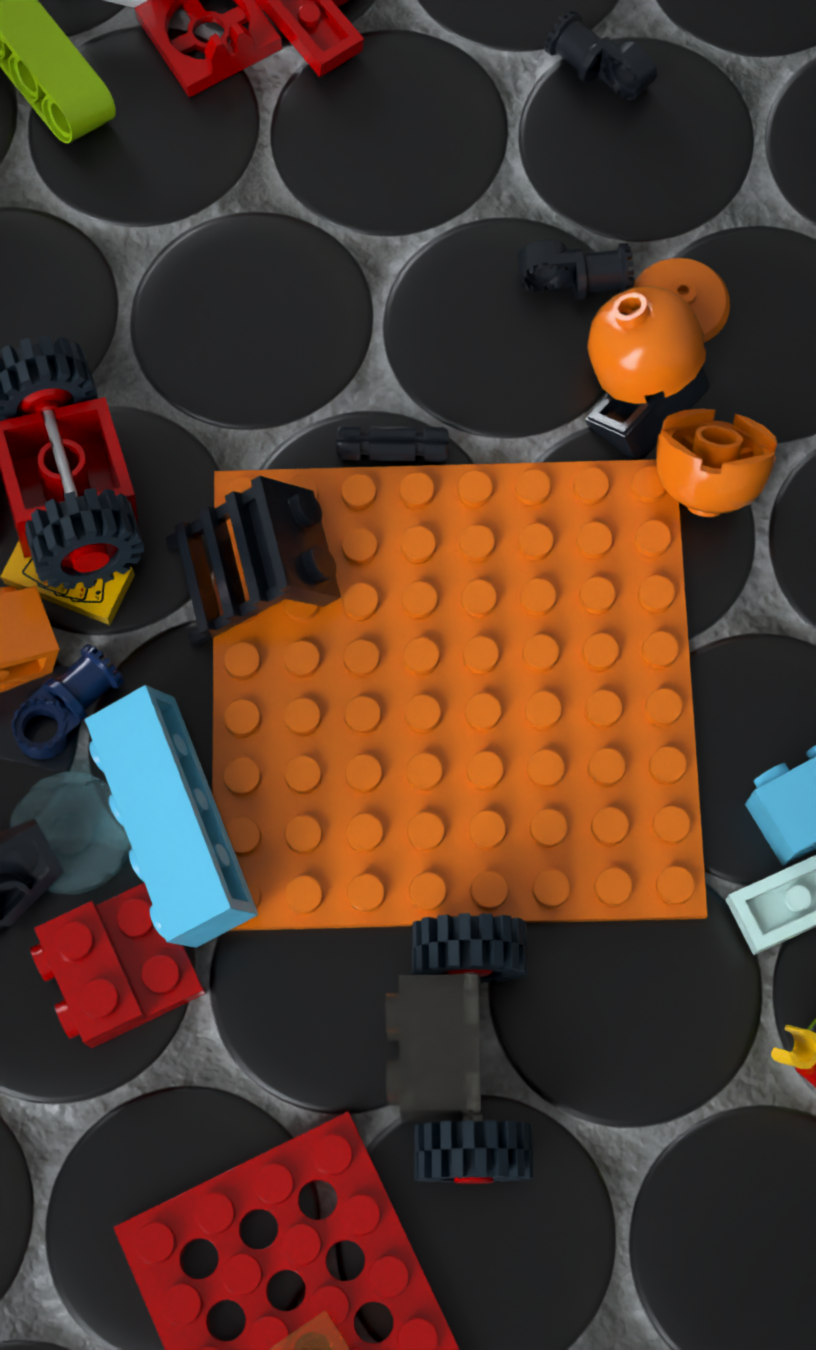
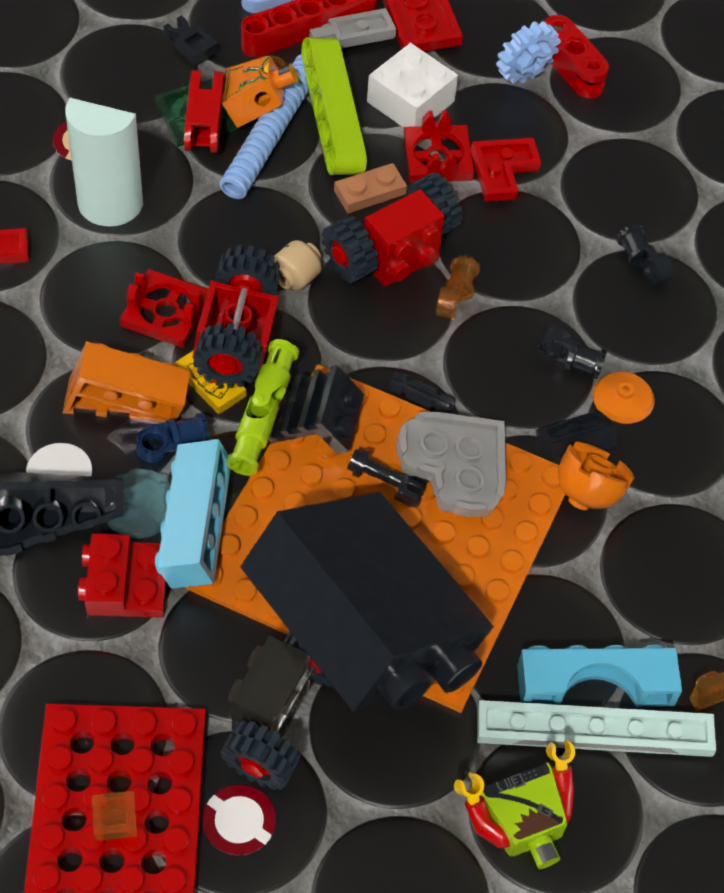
camera: 20 degrees right, 15 degrees down
(99, 321) = (298, 264): none -> tan head
(137, 136) = (370, 188): none -> nougat plate
(173, 555) = (270, 388): none -> lime piece
(230, 204) = (396, 237): none -> brick
(356, 242) = (458, 287): none -> clear orange connector
(369, 609) = (409, 487): none -> black hinge
(483, 1248) = (239, 820): none -> sticker
(507, 529) = (459, 458): none -> light grey plate
(519, 853) = (367, 601): none -> black brick
(645, 344) = (588, 401): orange cylinder -> none

